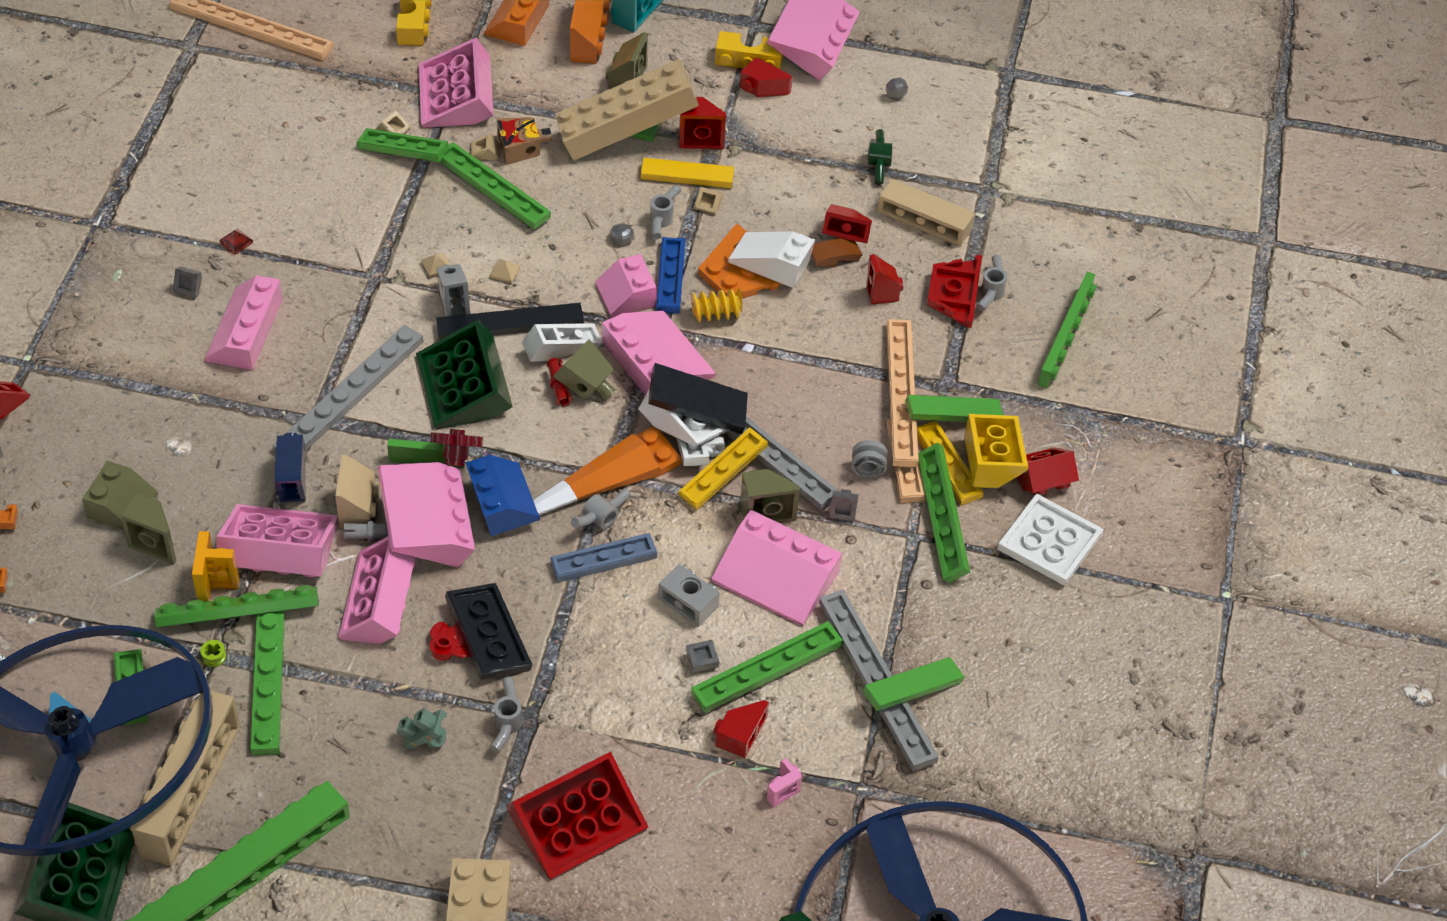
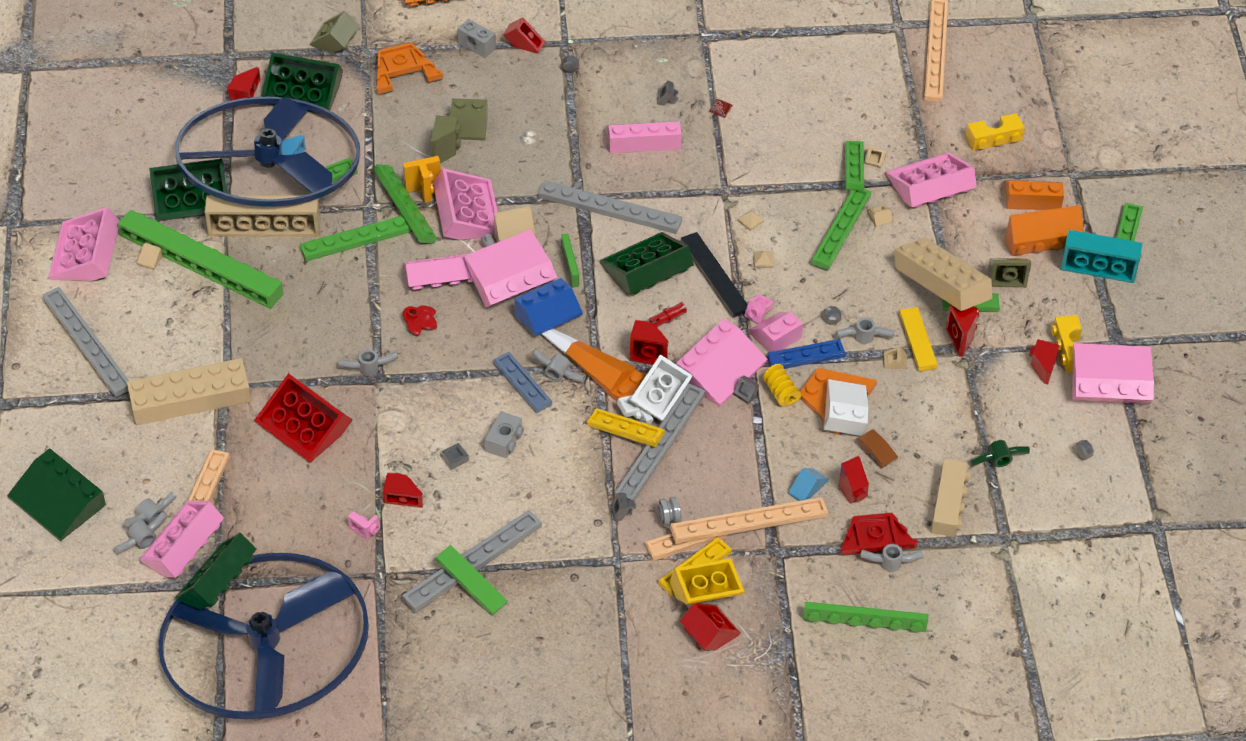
camera: 75 degrees right, 0 degrees up
(78, 363) = (571, 64): none -> flat silver tile
(212, 660) = (364, 201): lime bush -> none
(290, 468) = (522, 189): dark blue slope -> none
(423, 729) = (339, 322): sand green hips -> none
(453, 283) = (721, 230): light grey torso -> none
(456, 445) = (570, 265): dark red plant -> none
(488, 631) = (434, 335): black tile -> none
(520, 138) = (895, 228): torso -> none
(558, 340) = (703, 303): white slope -> none
(586, 292) = (758, 307): none -> bright pink bracket
(586, 372) = (677, 324): olive torso -> none
(608, 406) = (647, 343): none -> red slope
(698, 398) = (671, 389): black tile -> none
(706, 339) = (746, 388): none -> flat silver tile
(766, 667) = (459, 494): bright green plate -> none
(769, 495) = (600, 453): olive slope -> none
(777, 568) = (548, 480): bright pink slope -> none
(846, 224) = (904, 443): red slope -> none
(865, 327) = (807, 484): none -> dark azure slope
(943, 513) = (646, 566): bright green plate -> none
(950, 408) = (743, 555): bright green tile -> none
(1050, 539) = (642, 644): white plate -> none

